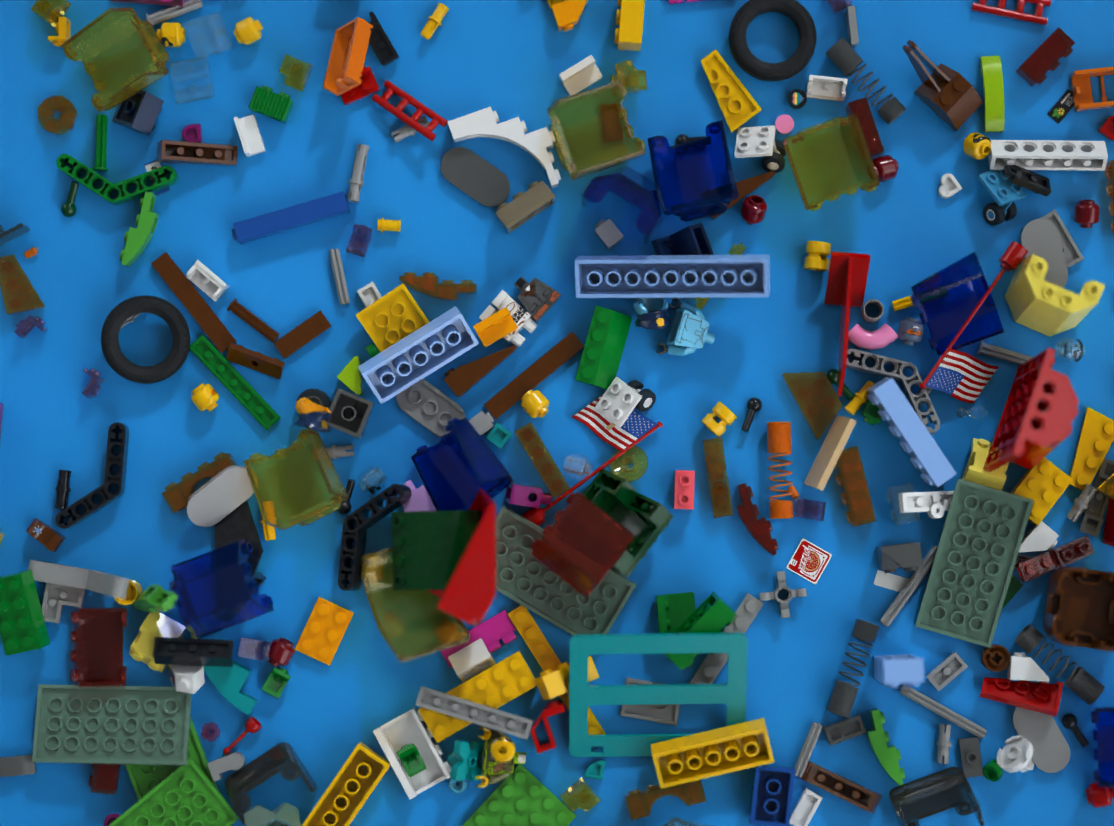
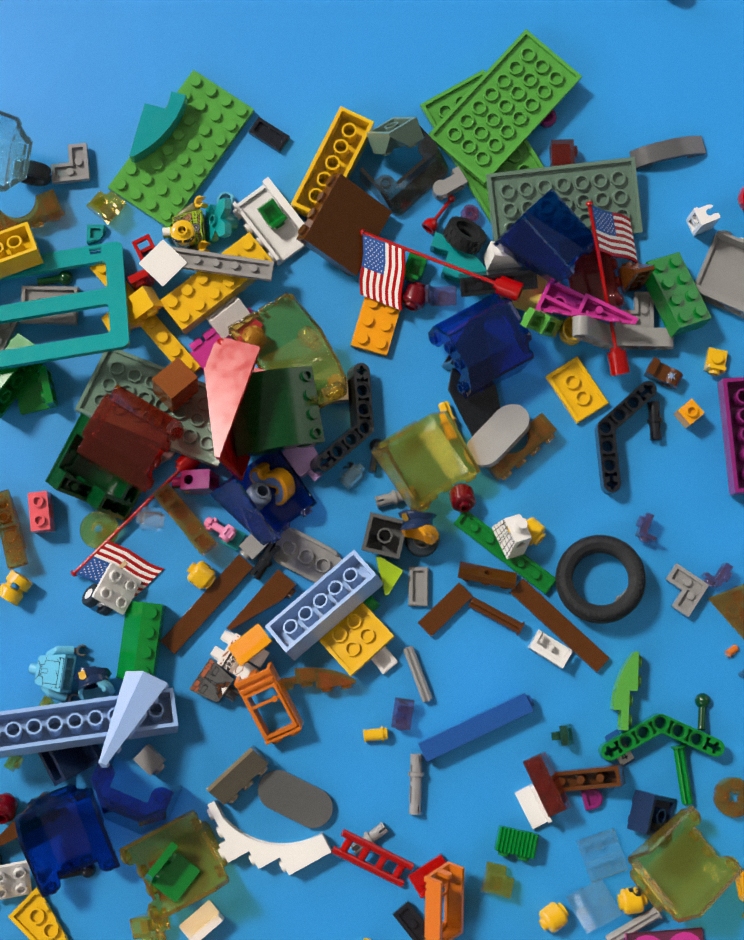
camera: 165 degrees right, 5 degrees down
(27, 490) = (688, 413): none -> light orange brick
(55, 638) = (634, 275): none -> reddish brown slope
(59, 318) = (691, 589): none -> light grey plate
(69, 677) = (614, 238): none -> flag
(129, 617) = (566, 301): none -> dark pink wedge
(134, 532) = (576, 390): none -> yellow tile
(136, 684) = (547, 239): none -> clear blue windscreen
(207, 197) = (564, 734): none -> clear green tile
(213, 713) = (464, 235): none -> black tyre
(223, 394) = (512, 535): none -> white torso
(232, 153) = (547, 784): none -> clear red brick
(267, 440) = (462, 497): none -> dark red head
(304, 684) = (385, 270): none -> flag
(325, 361) = (418, 586): none -> light grey tile
(339, 735) = (337, 220): none -> reddish brown brick
(449, 487) = (276, 478): none -> light orange animal
(464, 473) = (260, 494): none -> sand blue head
(470, 408) = (265, 561): none -> black pin
(490, 288) = (259, 682): none -> orange door
(503, 439) = (226, 533): none -> bright pink bar
(527, 720) = (162, 262): none -> white sticker
(532, 593) = (175, 384): none -> dark orange piece
(600, 124) = (172, 873): none -> green bracket
(610, 290) = (135, 697): none -> light blue wedge
(633, 727) = (64, 277): none -> dark green bar

